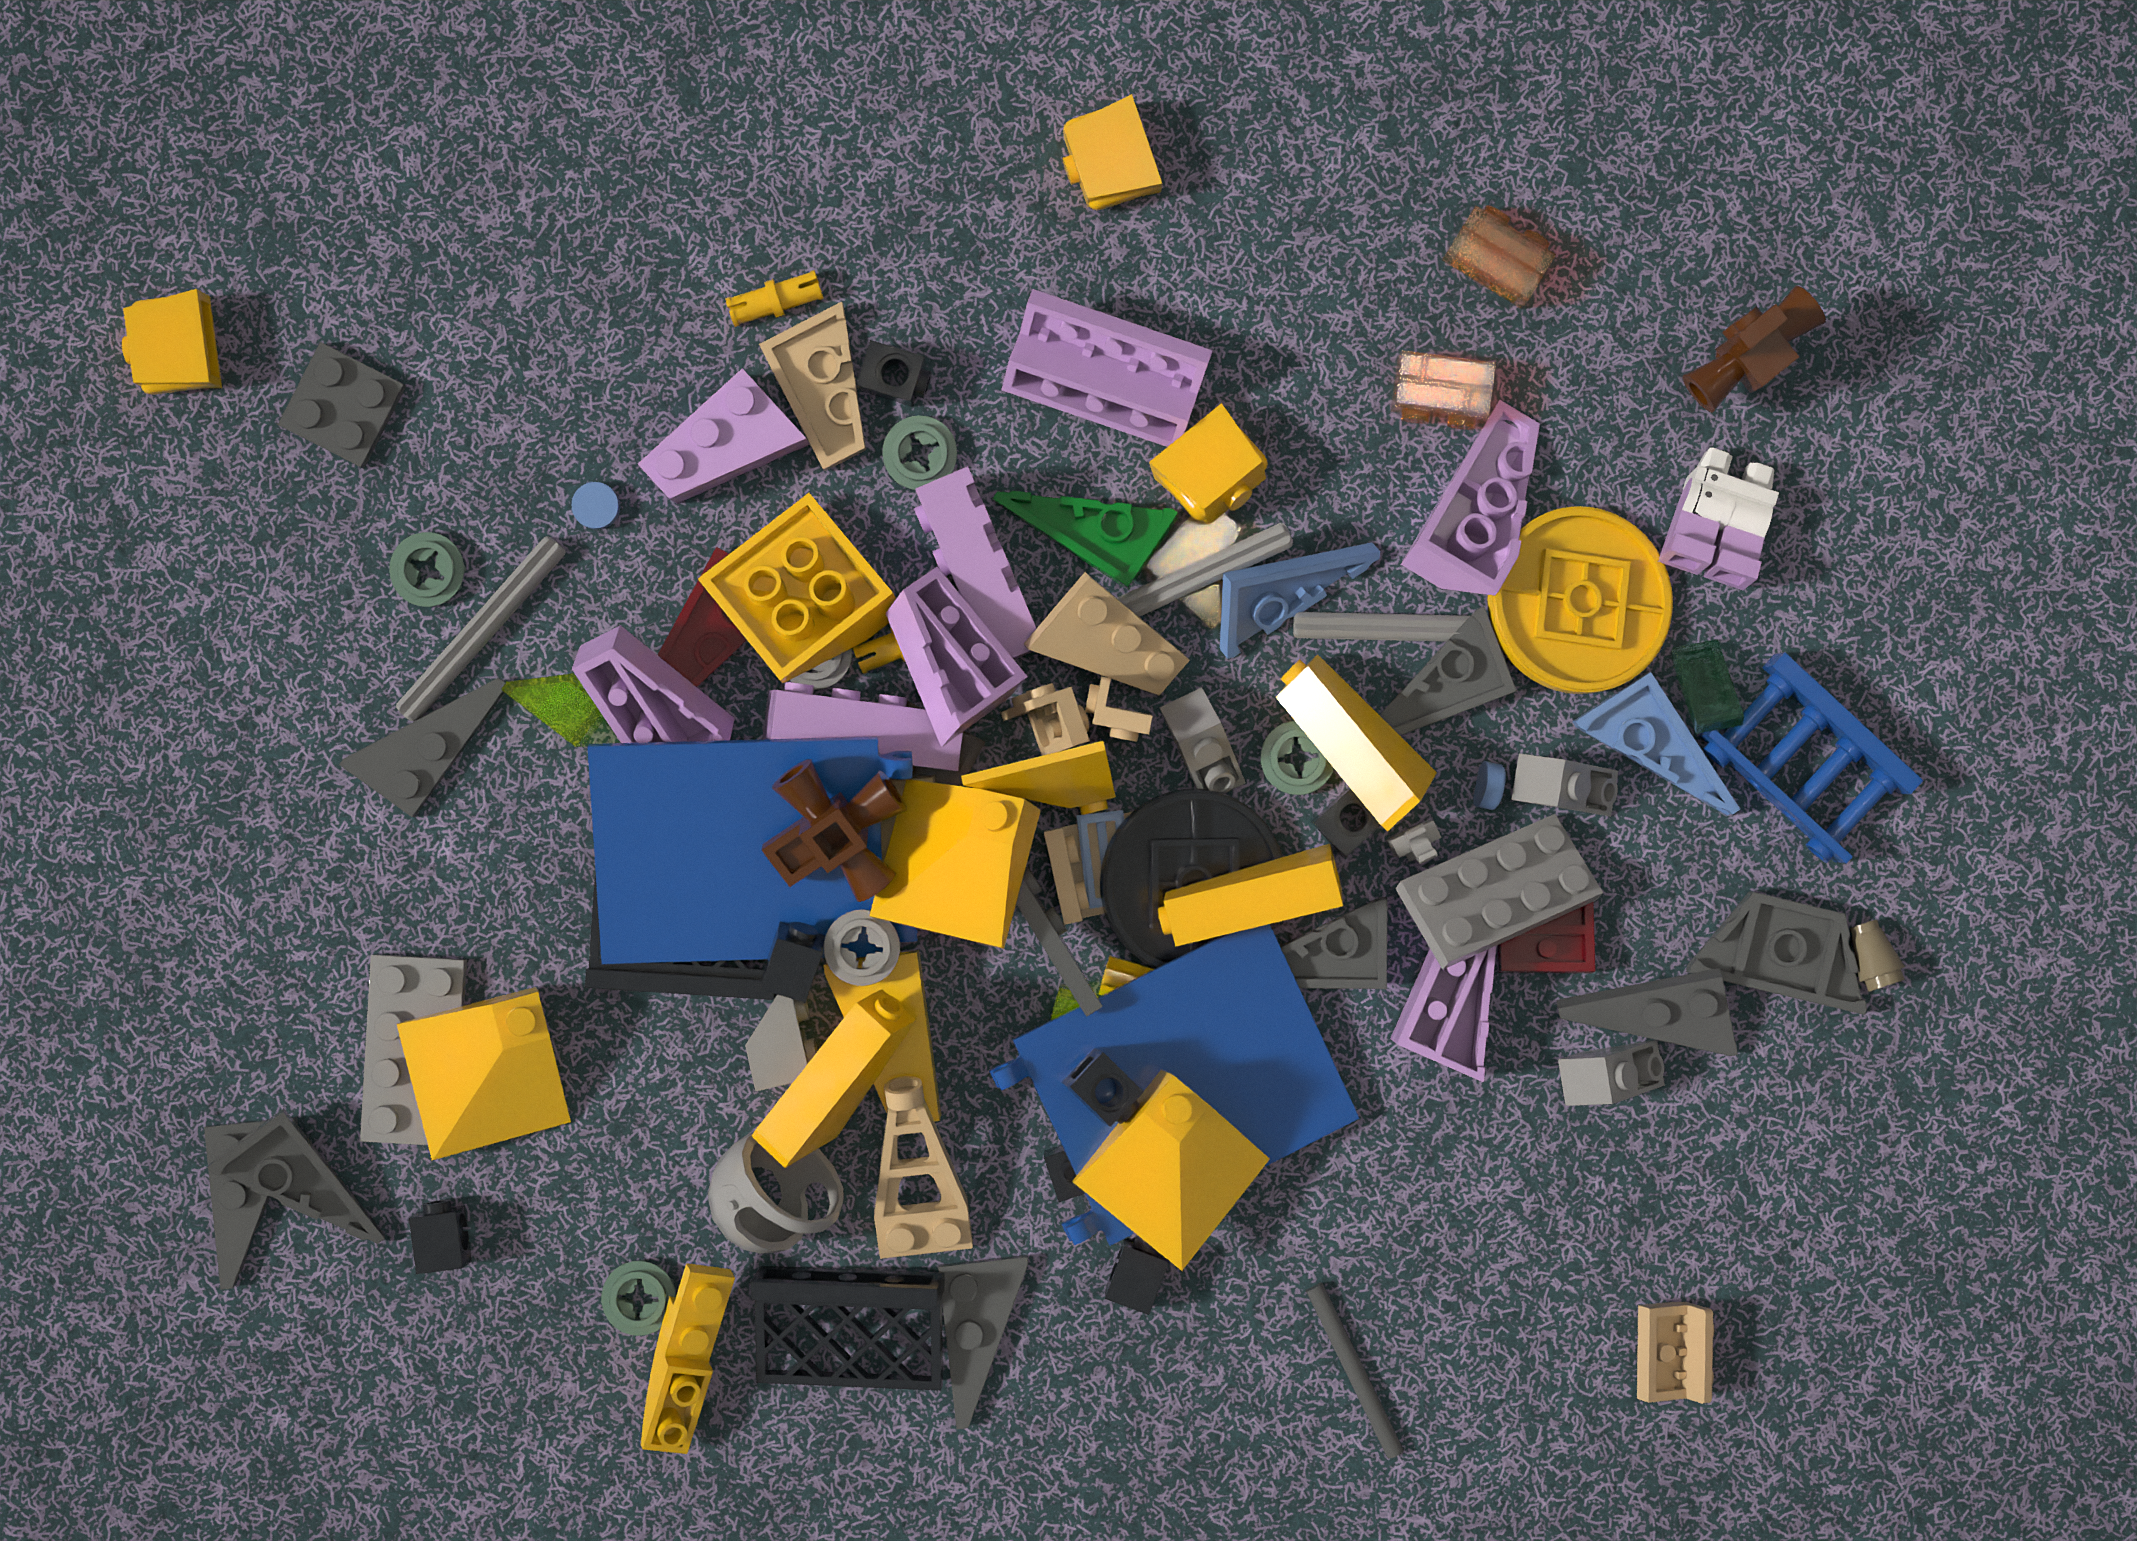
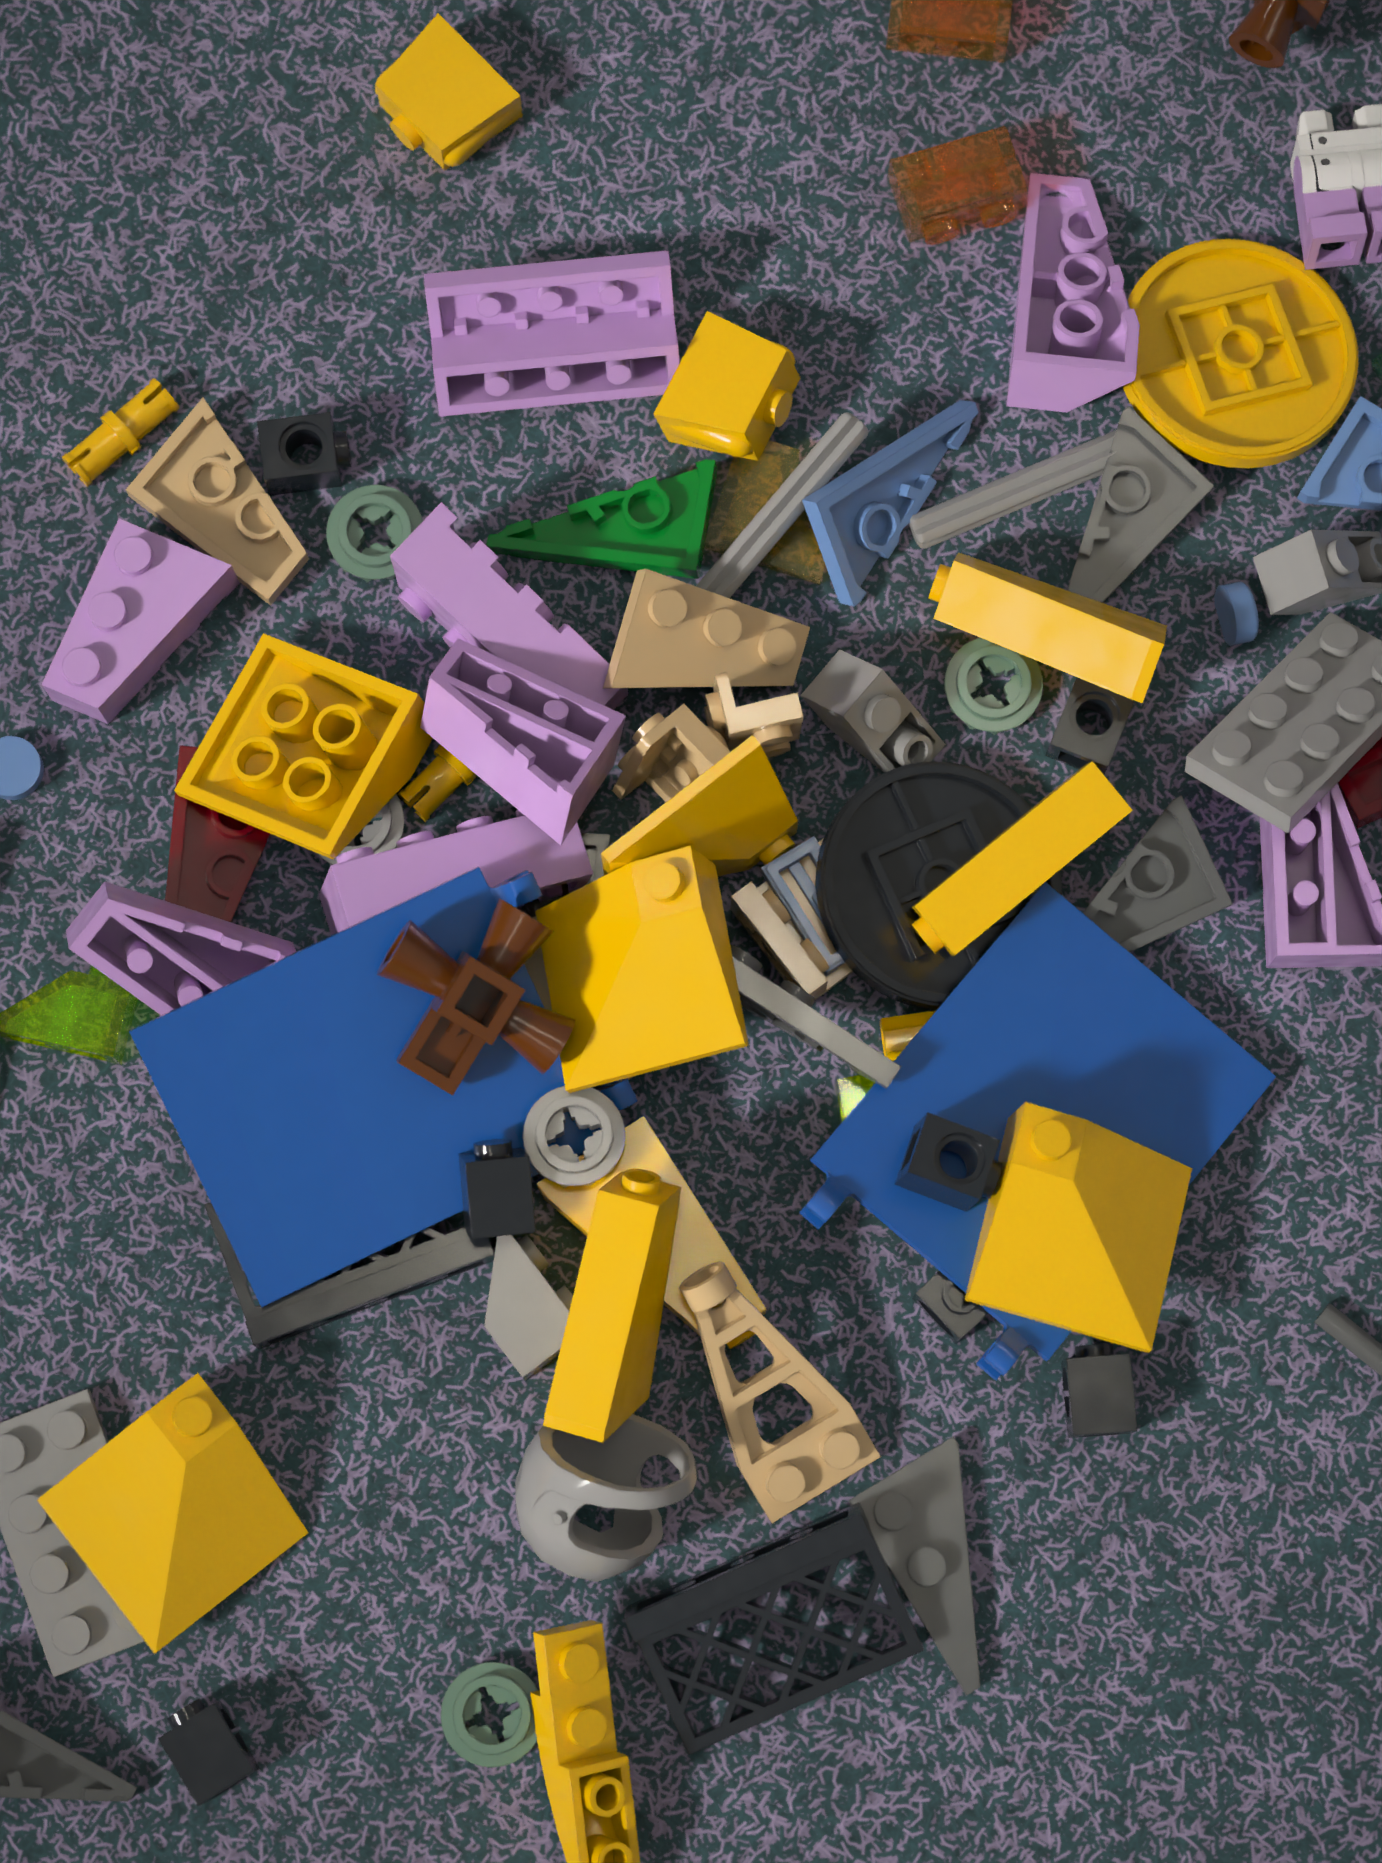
camera: 20 degrees left, 10 degrees down
(1416, 842) = (1182, 714): light grey plate -> none

